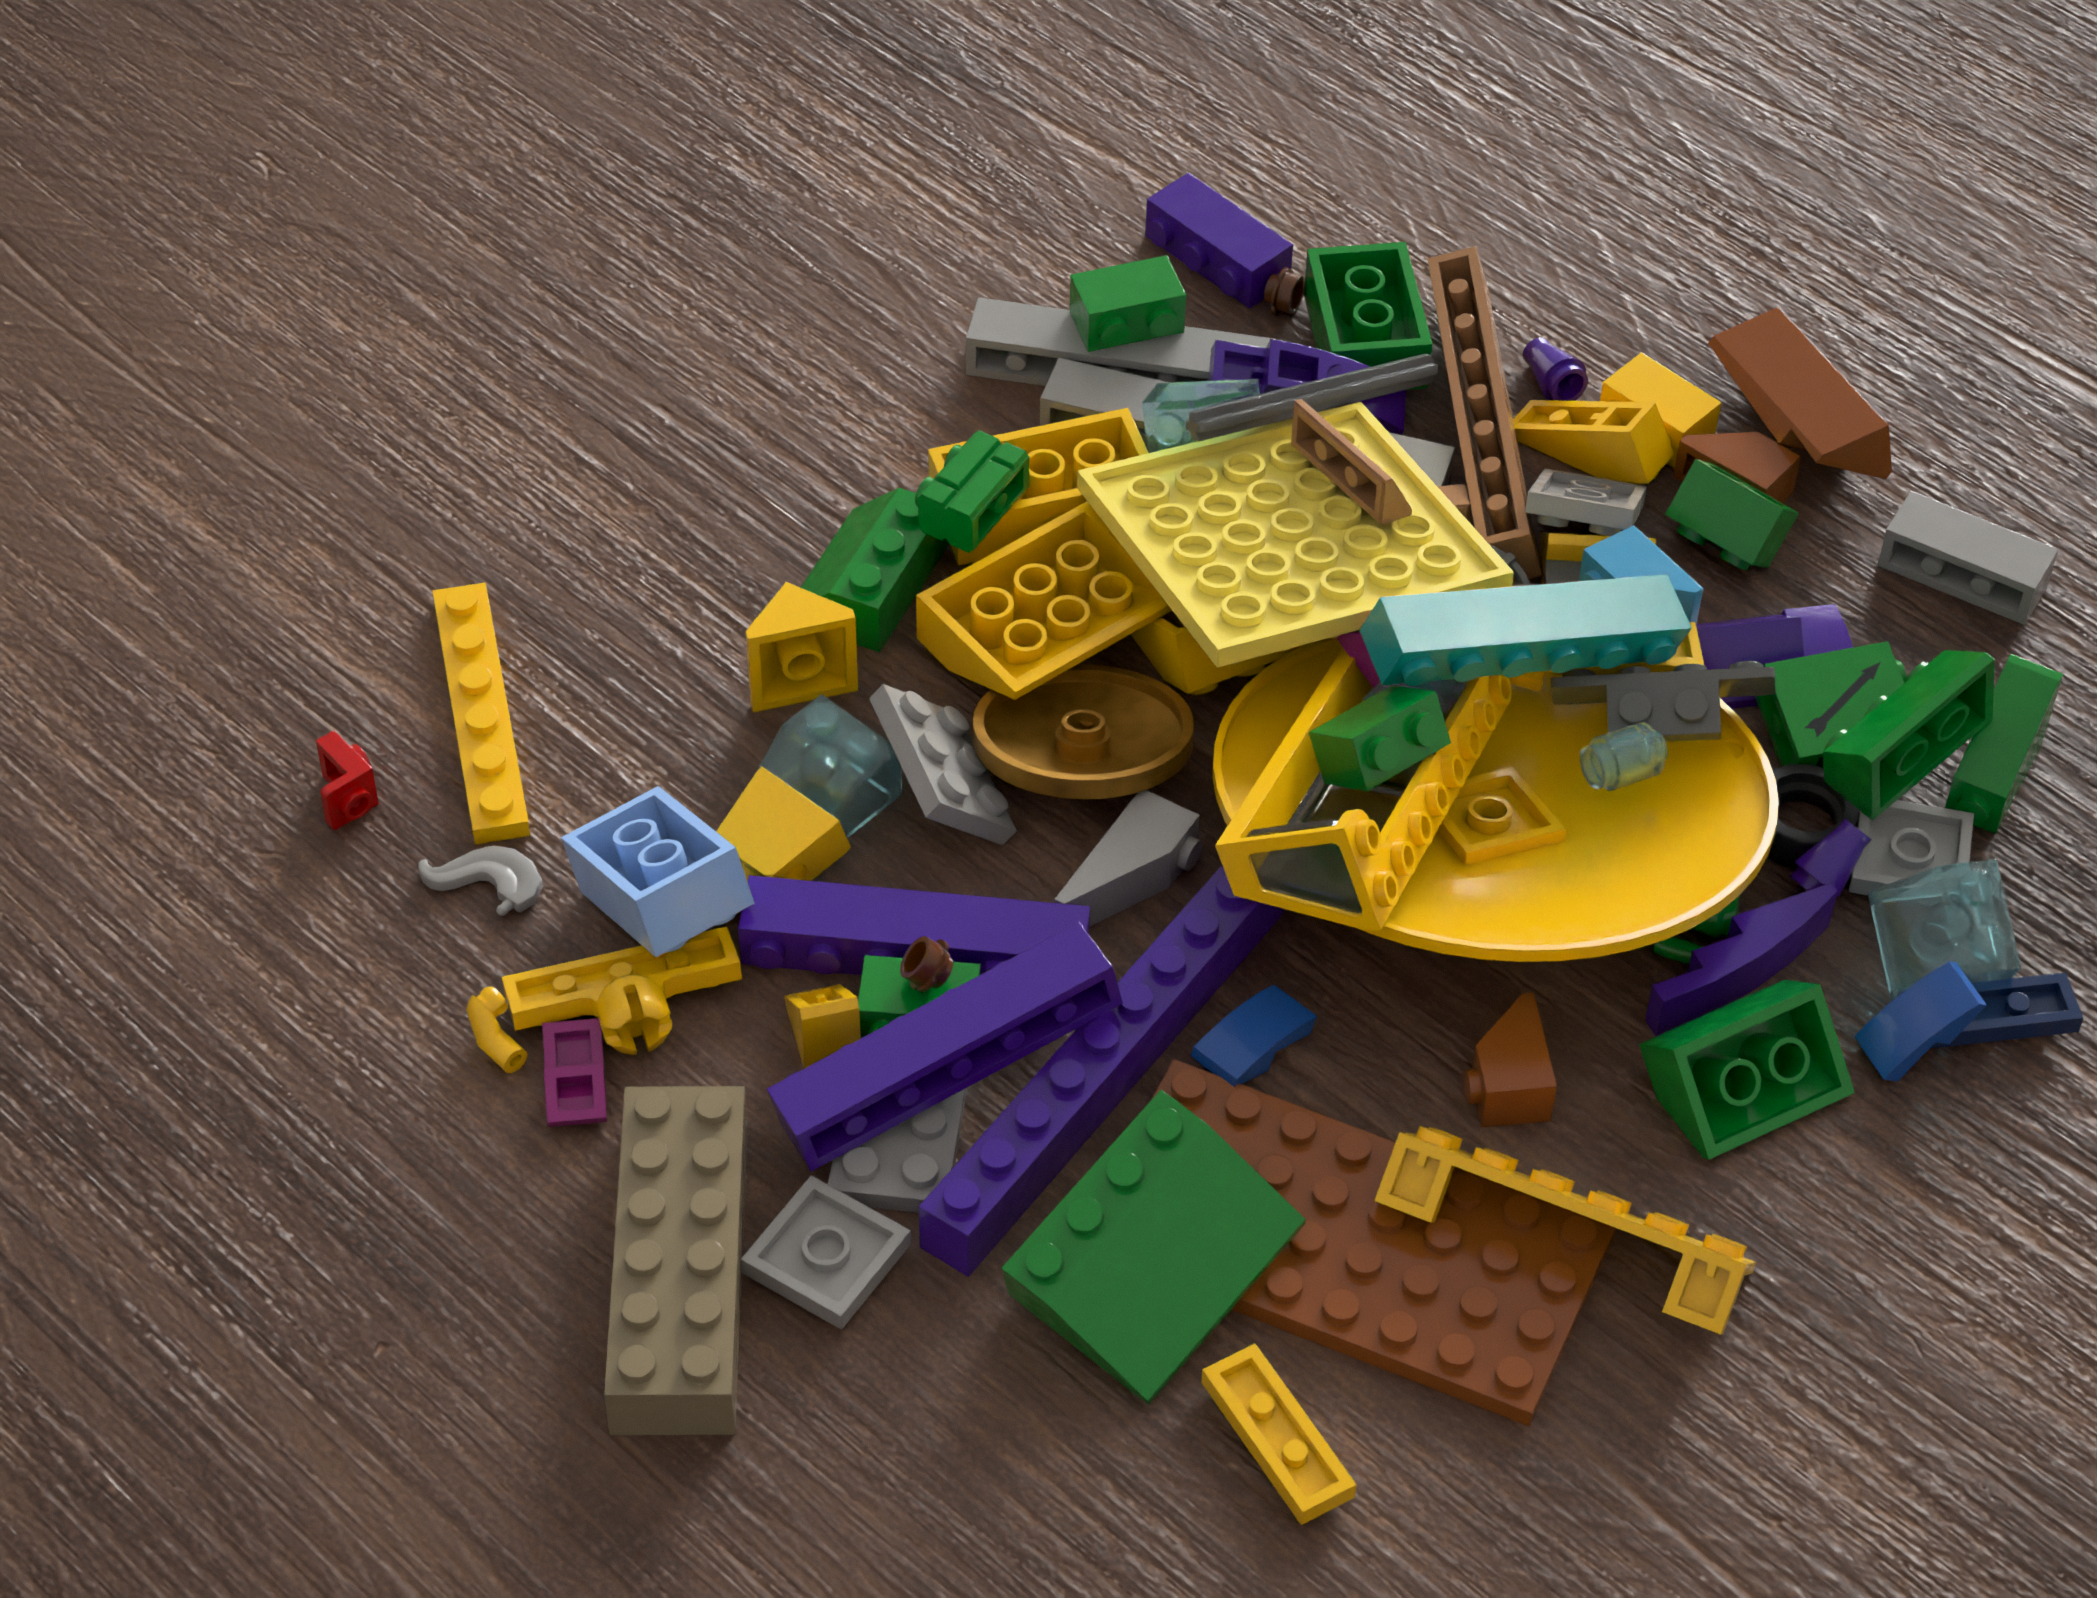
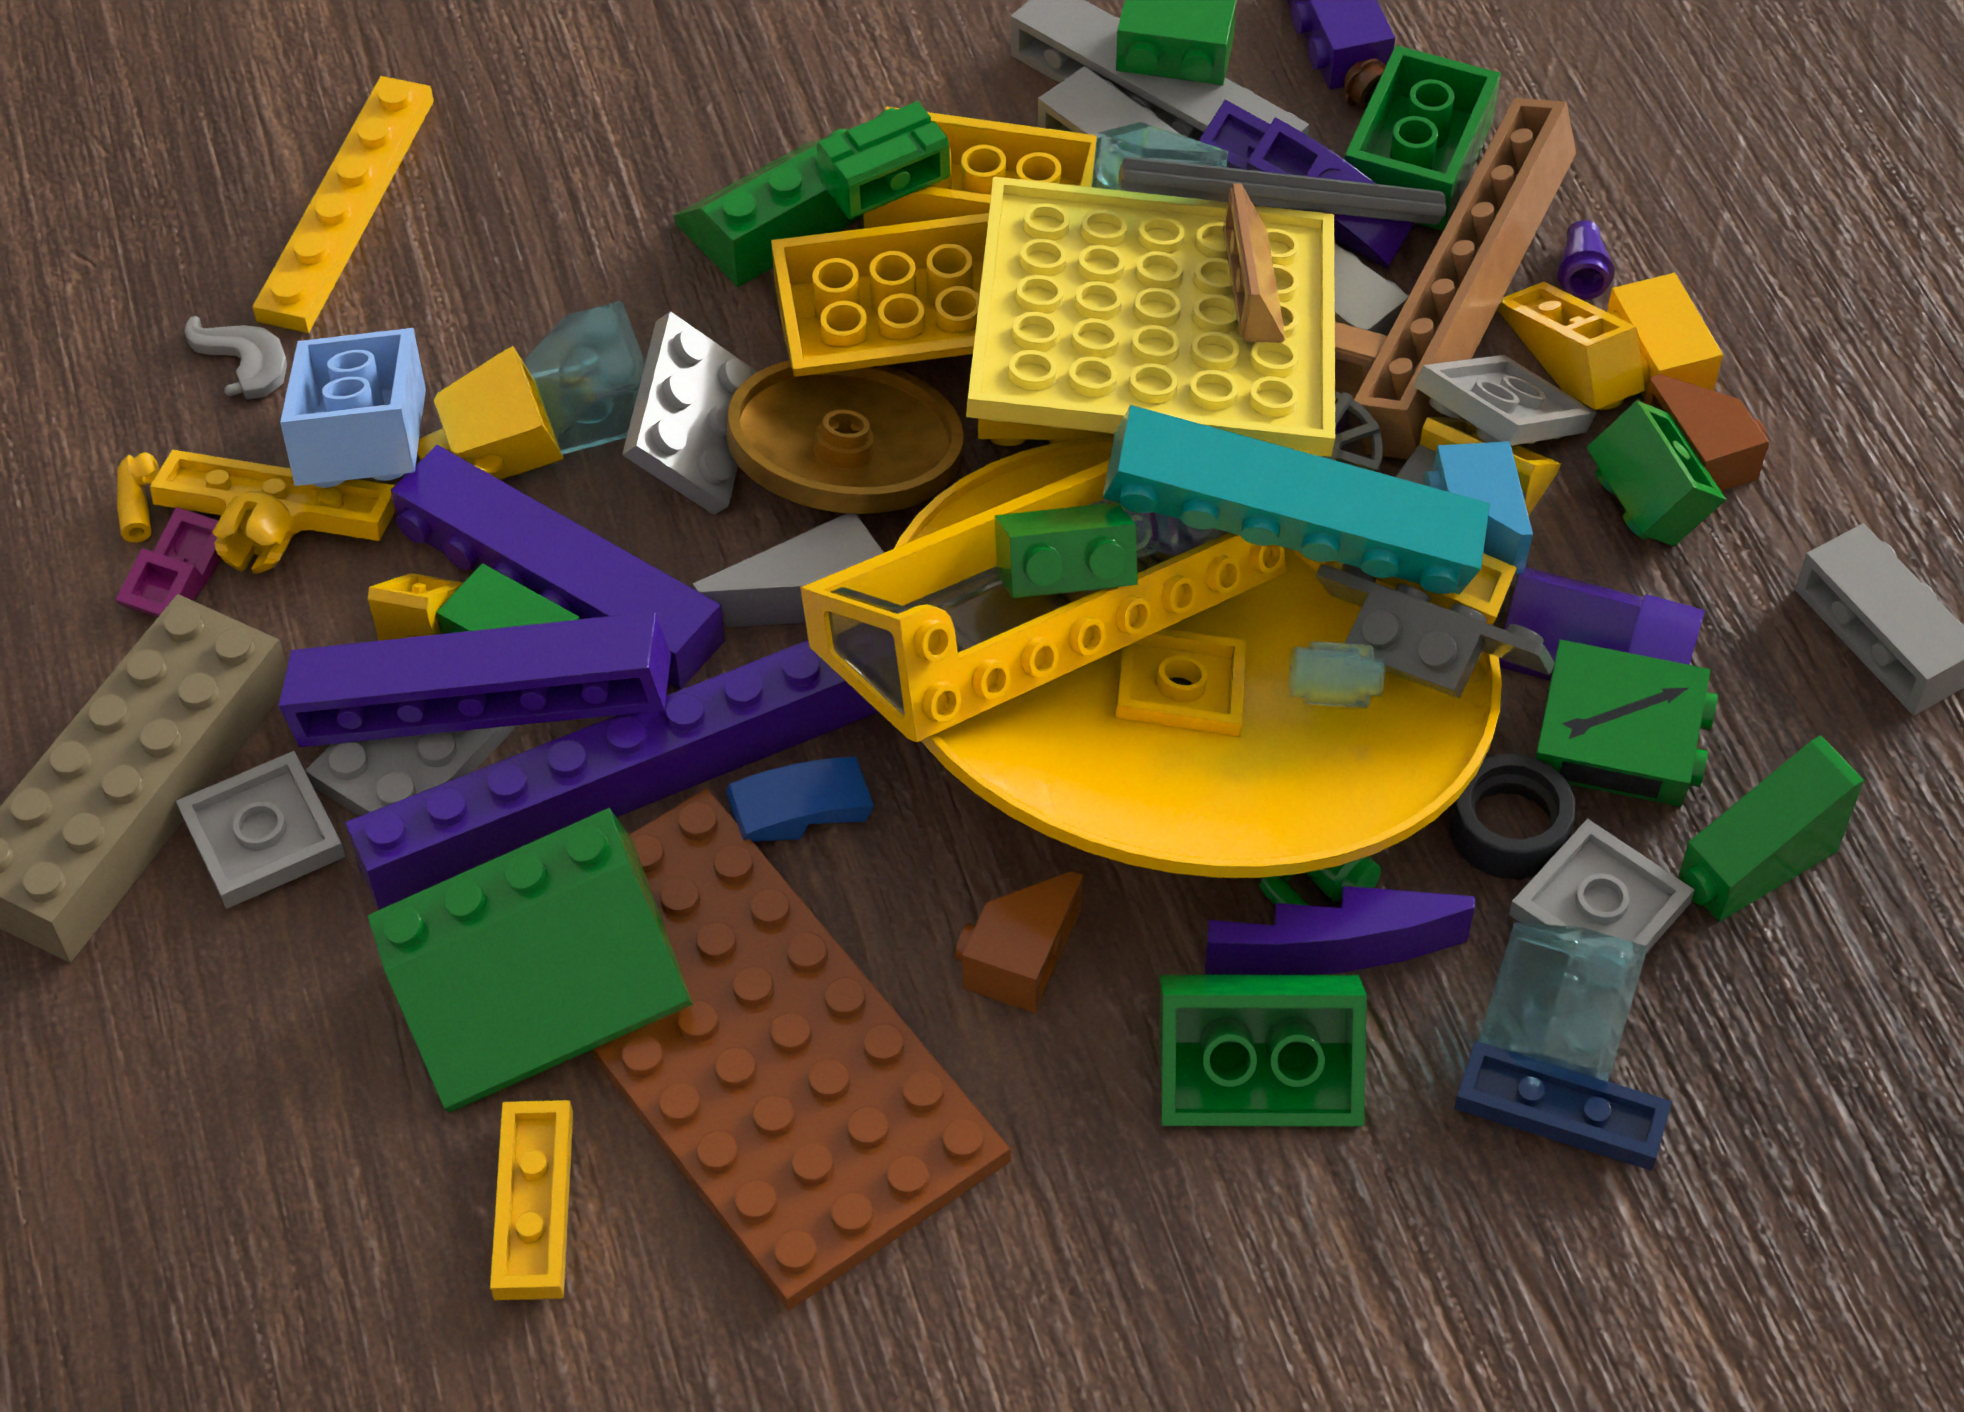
camera: 30 degrees right, 5 degrees up
(350, 780) = (179, 229): red bracket -> none
(800, 650) = (634, 252): yellow slope -> none
(926, 964) = (517, 595): reddish brown plate -> none
(1707, 1272) = (1052, 1215): yellow bracket -> none
(1803, 395) = (1810, 381): dark orange slope -> none
(1831, 858) = (1499, 873): dark purple cone -> none
(1911, 730) = (1654, 774): green slope -> none
(1922, 1015) = (1471, 1077): blue slope -> none

